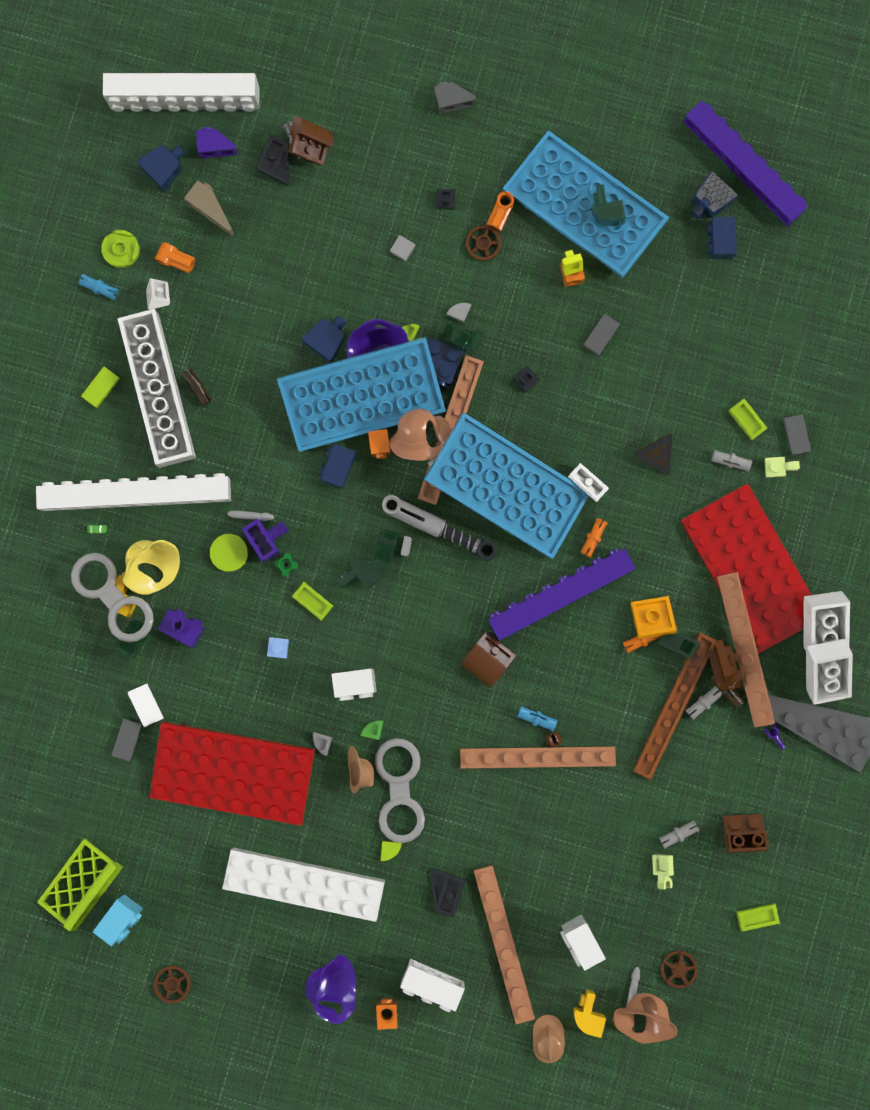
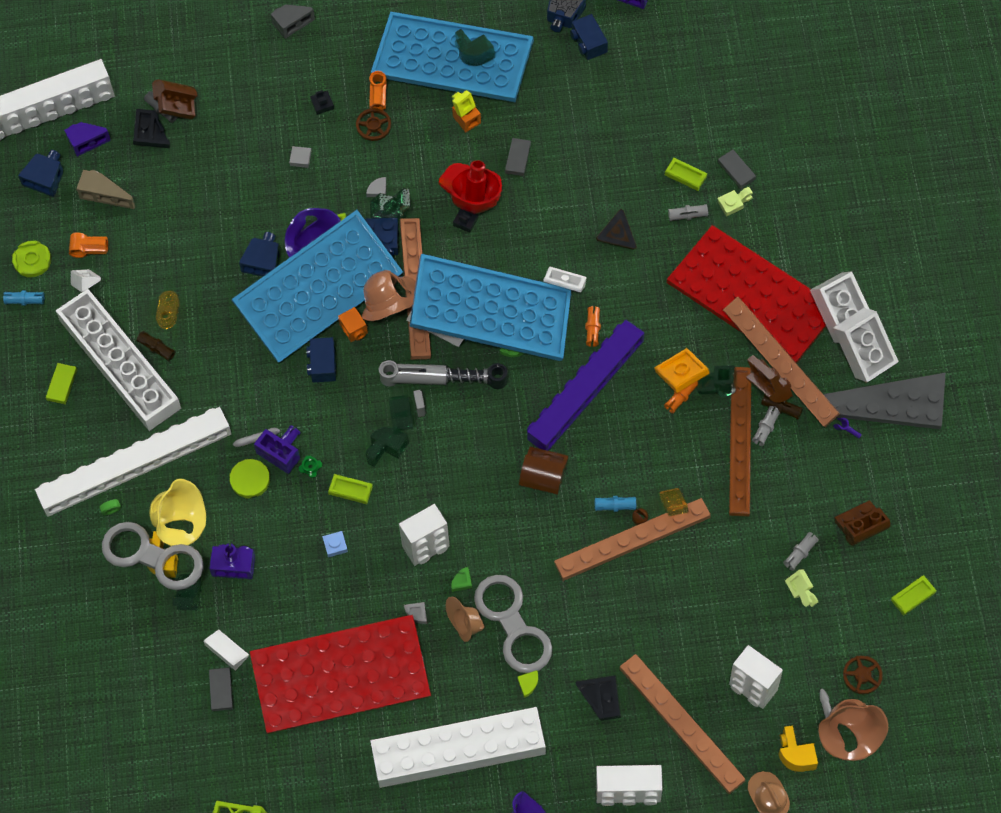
camera: 25 degrees left, 20 degrees down
(222, 353) = (167, 308): none -> clear yellow plate
(543, 352) = (472, 186): none -> red piece
(588, 742) = (673, 502): none -> clear yellow plate

